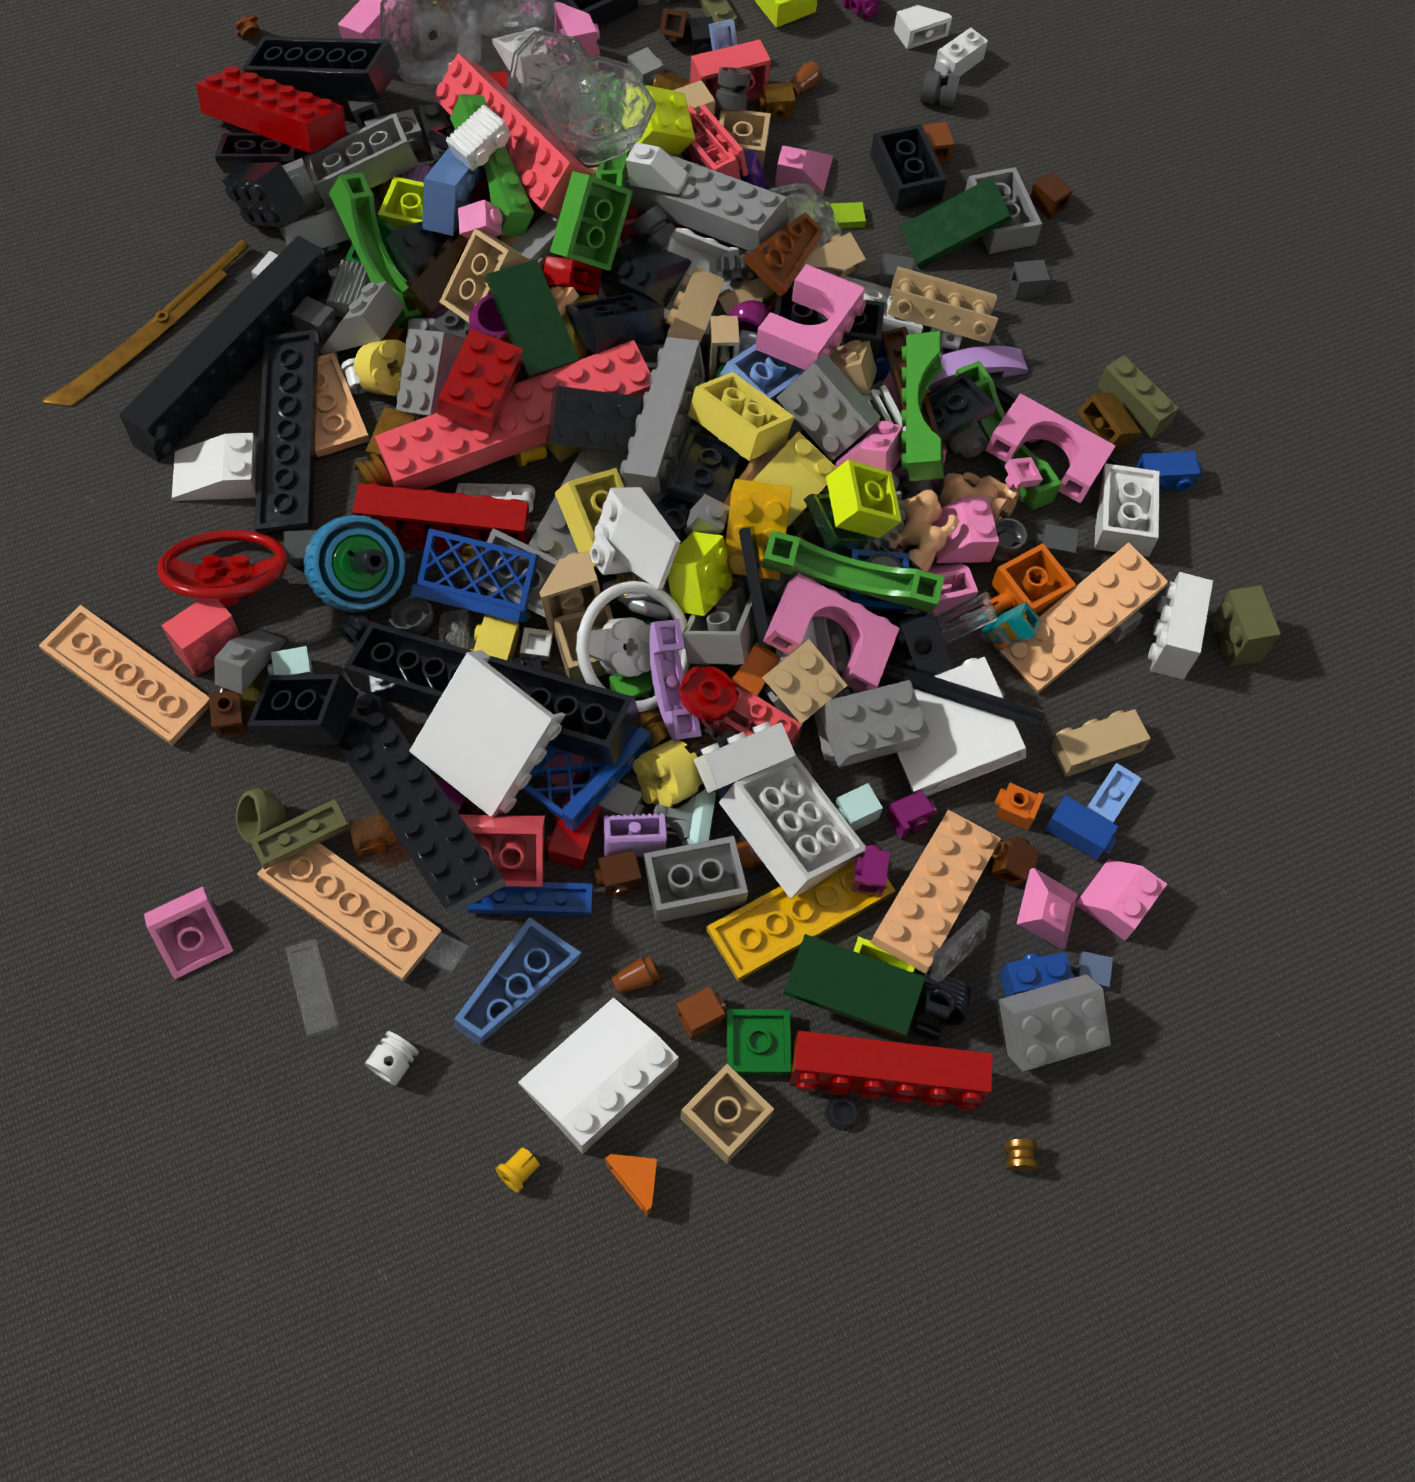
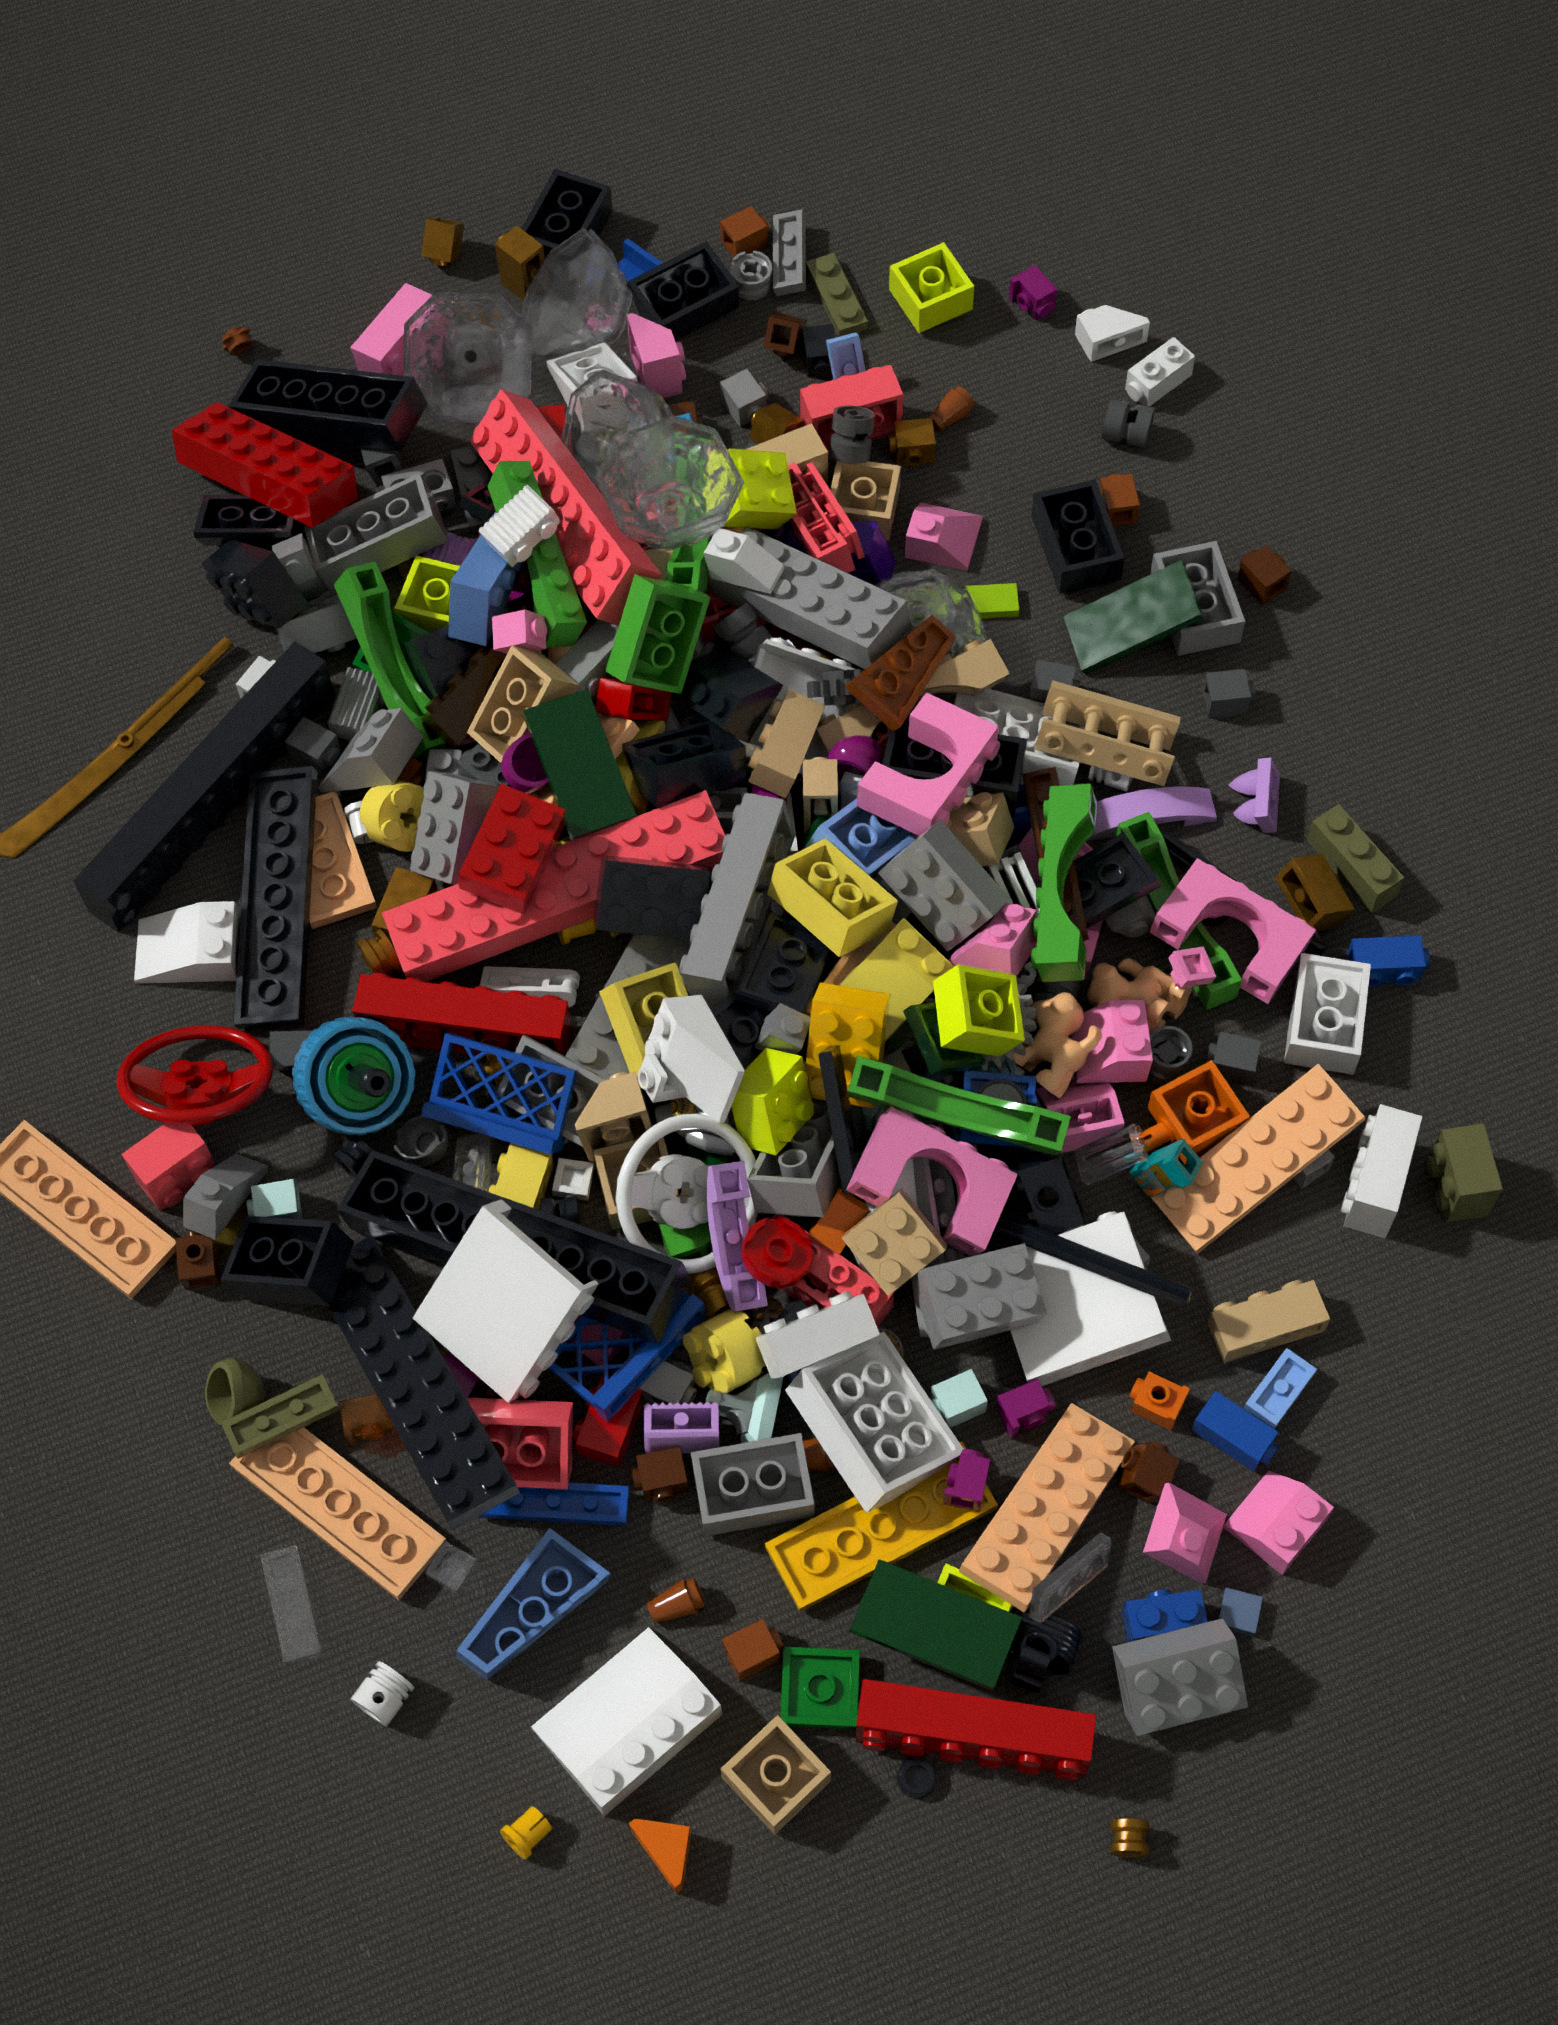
camera: 10 degrees right, 0 degrees up
(188, 932) = (147, 1533): bright pink slope -> none
(1064, 345) = (1264, 784): none -> lavender tile

